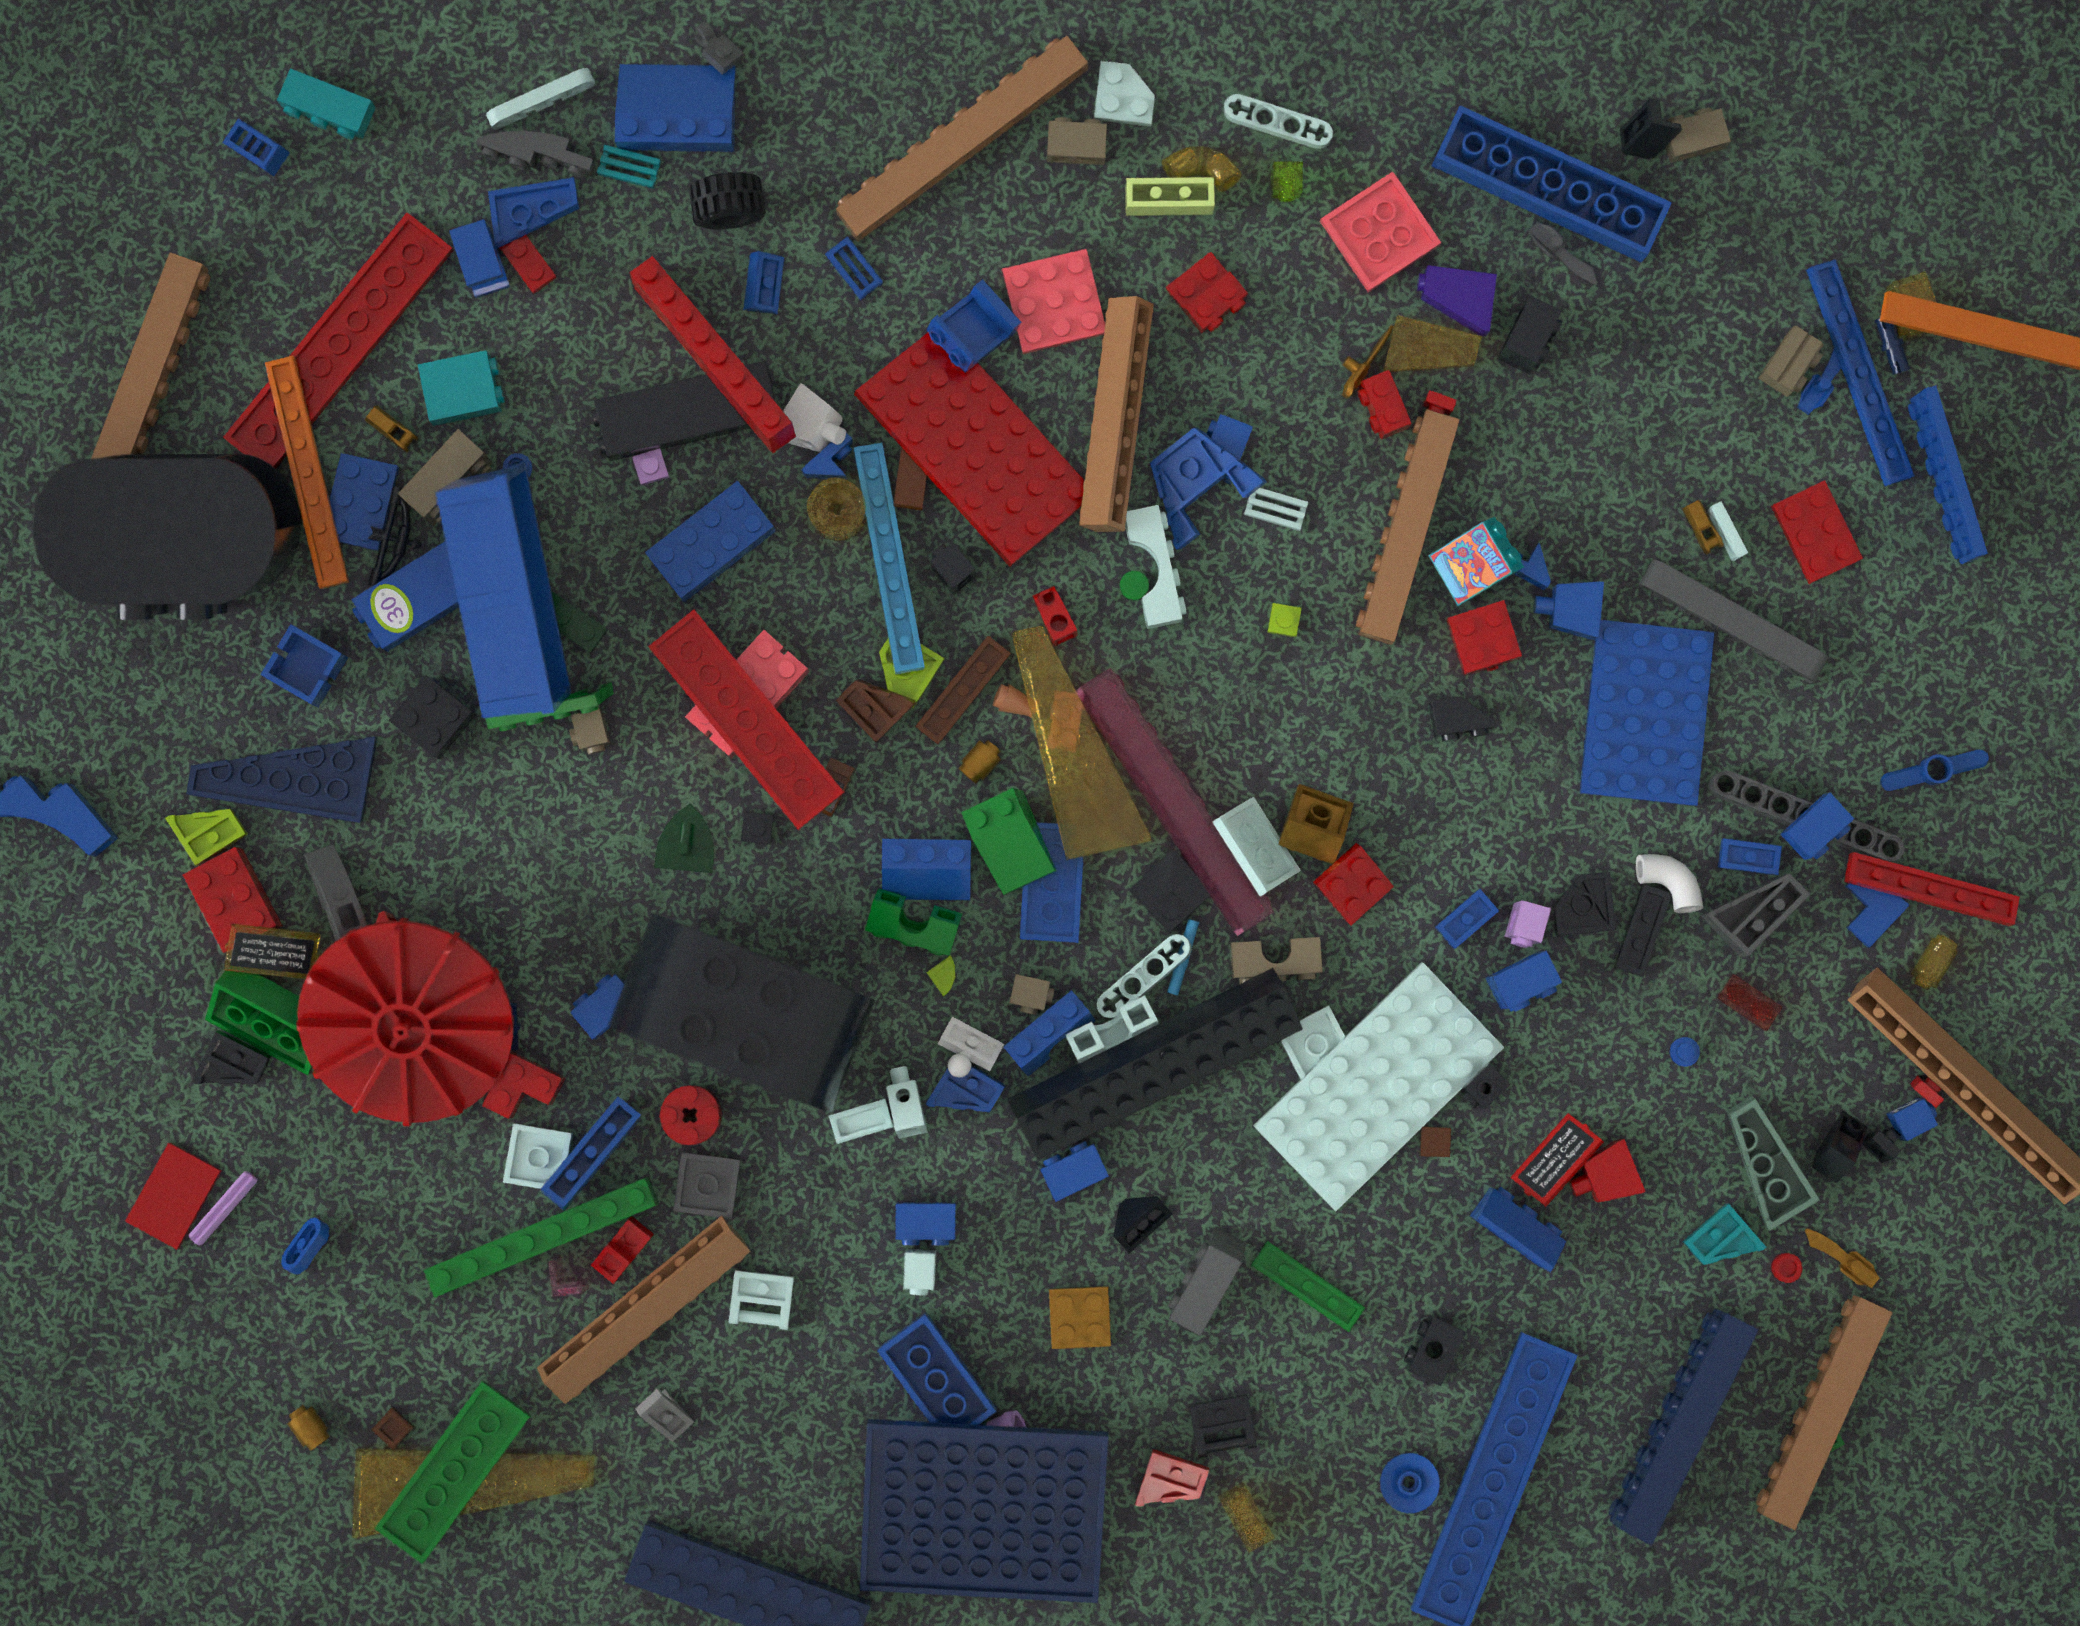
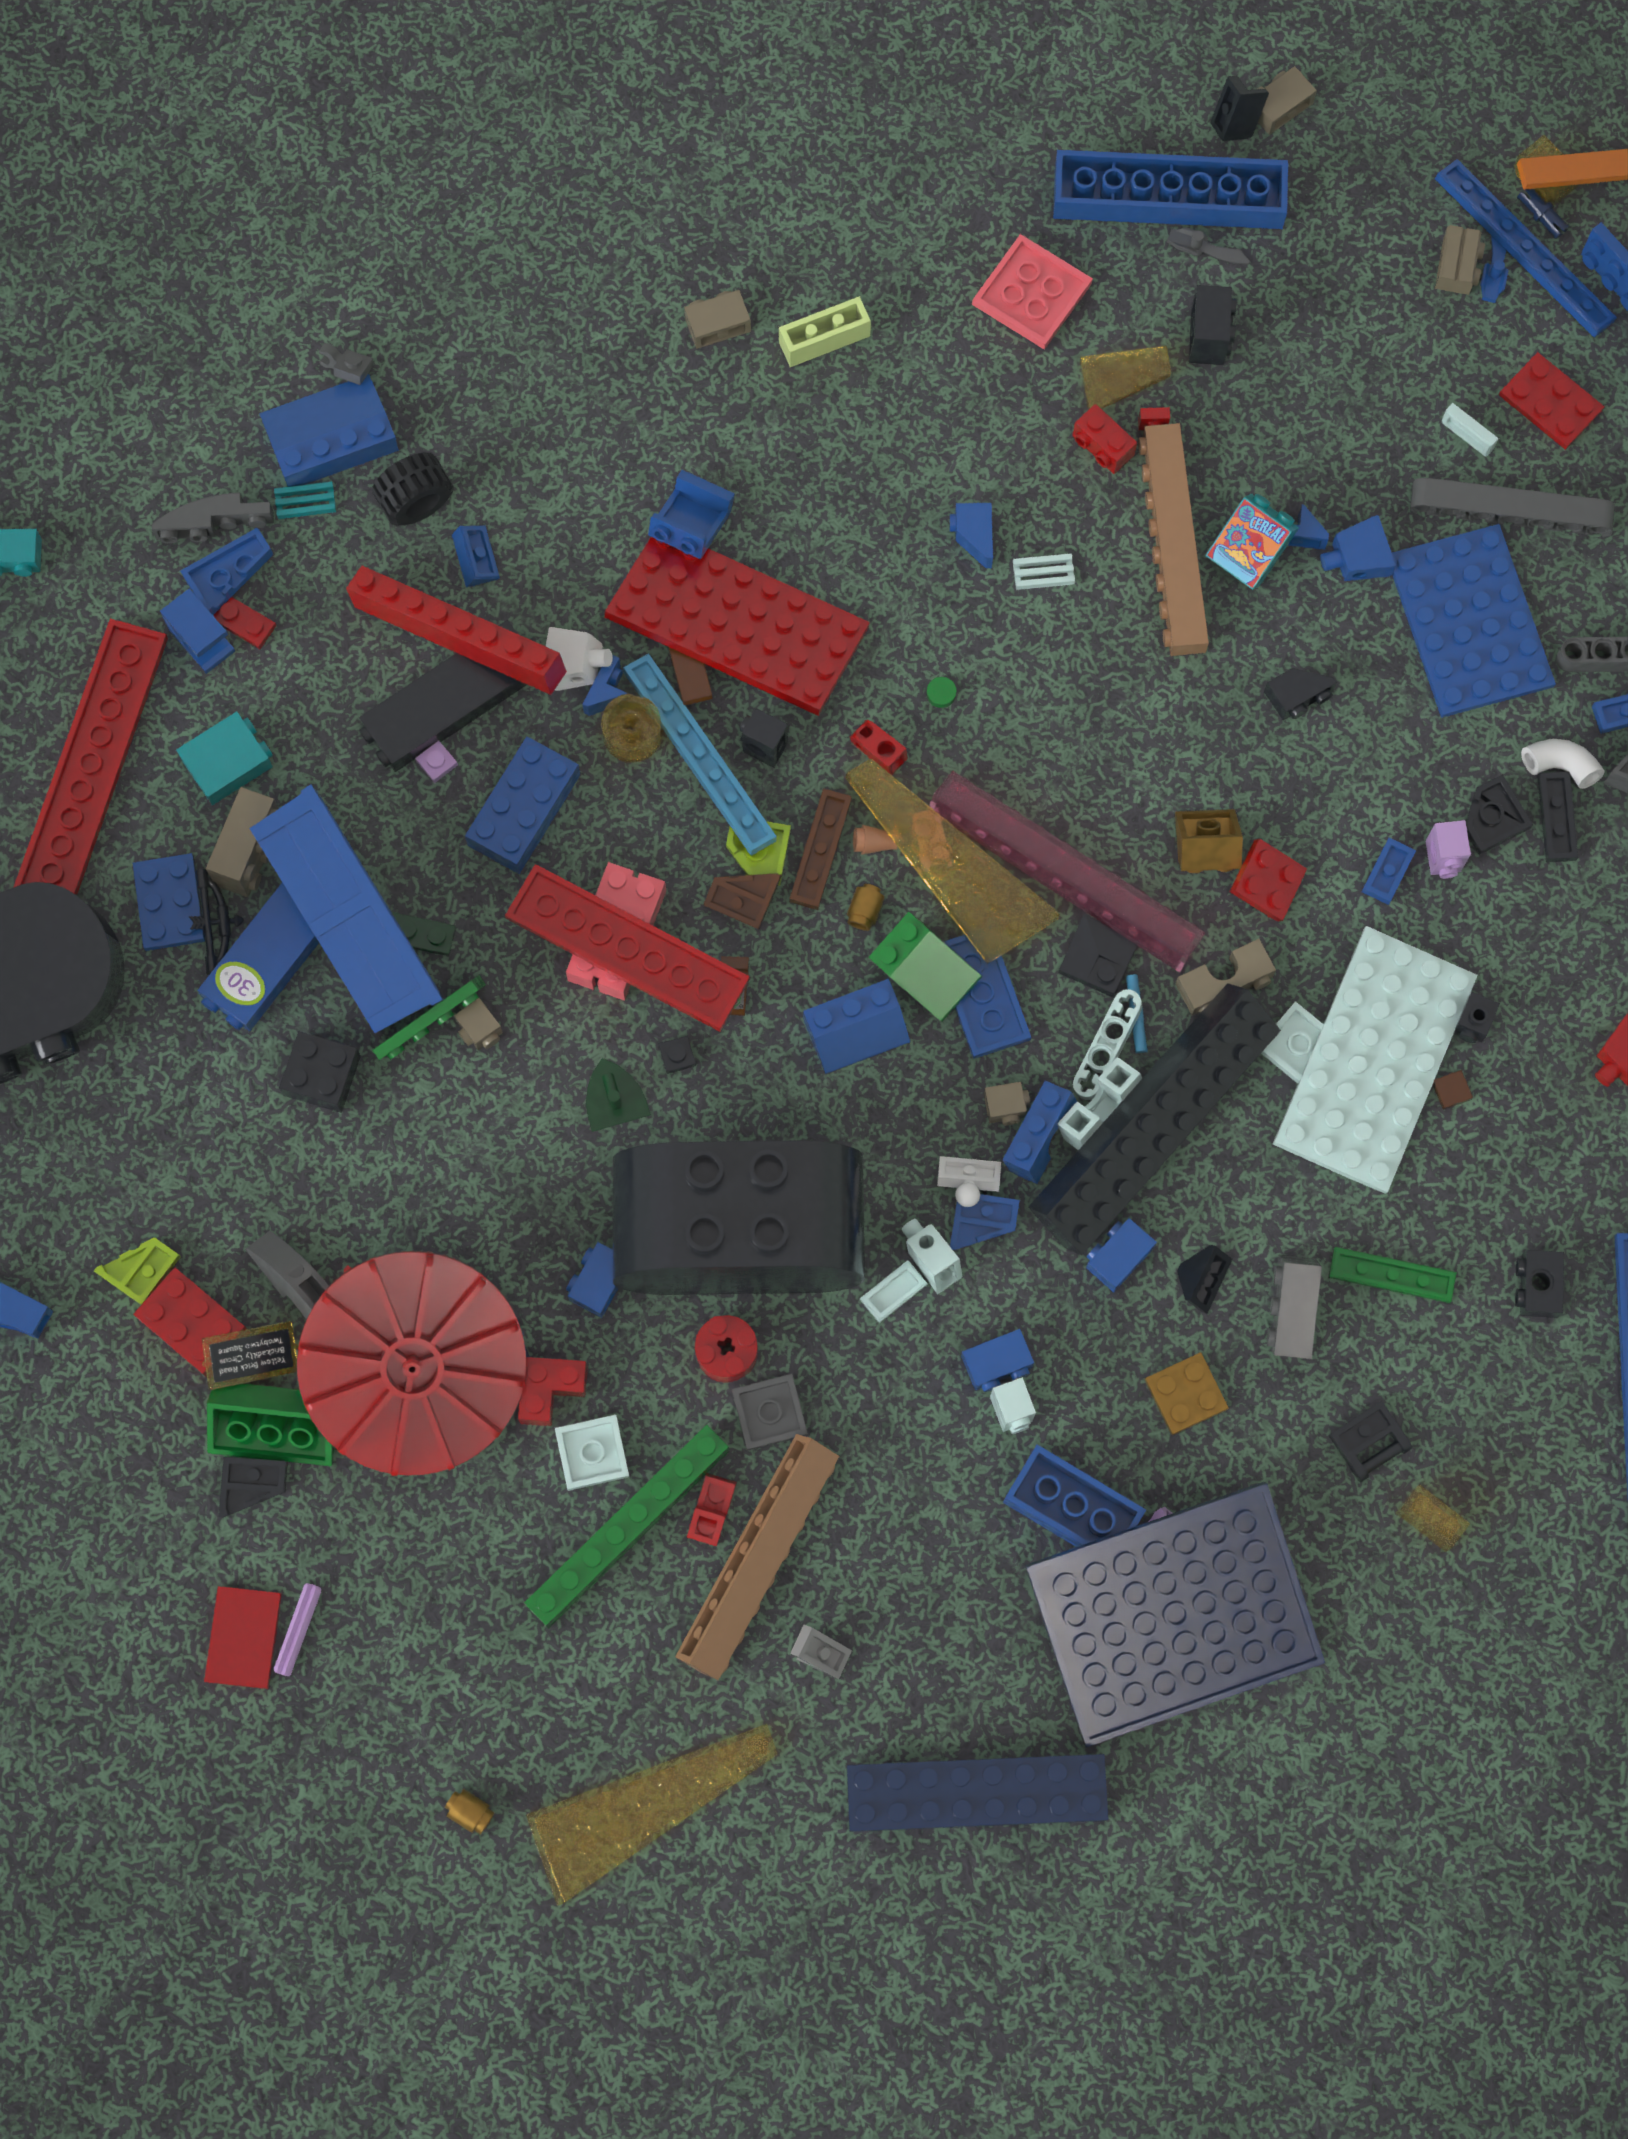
camera: 15 degrees left, 10 degrees down
(305, 667) = (178, 1071): blue piece -> none
(305, 1246) = (395, 1632): blue plate -> none
(306, 472) = (107, 891): orange tile -> none
(307, 780) = (216, 1183): dark blue wing -> none
(388, 426) = (169, 820): pearl gold bar -> none
(392, 1428) = (554, 1779): reddish brown tile -> none
(452, 1472) = (633, 1793): green plate -> none
(540, 98) = (196, 469): light aqua beam -> none
(560, 1285) = (674, 1561): clear pink panel -> none
(591, 1153) = (644, 1422): blue brick -> none
(761, 1289) = (867, 1491): light aqua plate -> none
(868, 287) = (576, 522): blue tile -> none
(890, 921) = (891, 1083): green arch -> none
(943, 975) = (914, 1121): lime tile -> none
(961, 138) = (608, 356): medium nougat brick -> none
(1054, 301) = (757, 466): coral plate -> none
(1116, 414) = (859, 542): medium nougat brick -> none
(1123, 96) = (742, 264): light aqua plate -> none
(1146, 529) = (932, 636): light aqua arch -> none
(1170, 1479) = (1342, 1514): wing -> none
(1192, 469) = (949, 566): blue wing -> none
(1204, 162) = (841, 290): clear yellow cylinder -> none
(1207, 293) = (896, 406): red plate -> none
(1256, 846) = (1161, 880): light aqua plate -> none
(1279, 116) = (894, 227): light aqua beam -> none
(1284, 620) = (1096, 668): lime plate -> none
(1286, 180) = (926, 278): clear neon green brick -> none
(1358, 370) = (1067, 419): pearl gold piece -> none
(1420, 1494) = (1590, 1420): blue dish -> none
(1460, 295) = (1130, 318): dark purple slope -> none
(1484, 638) = (1290, 609): red brick -> none
(1519, 1228) = (1569, 1136): blue slope -> none
(1524, 980) = (1469, 903): blue brick -> none
(1557, 1159) = (1575, 1058): piece -> none
(1699, 522) = (1441, 432): pearl gold bar -> none

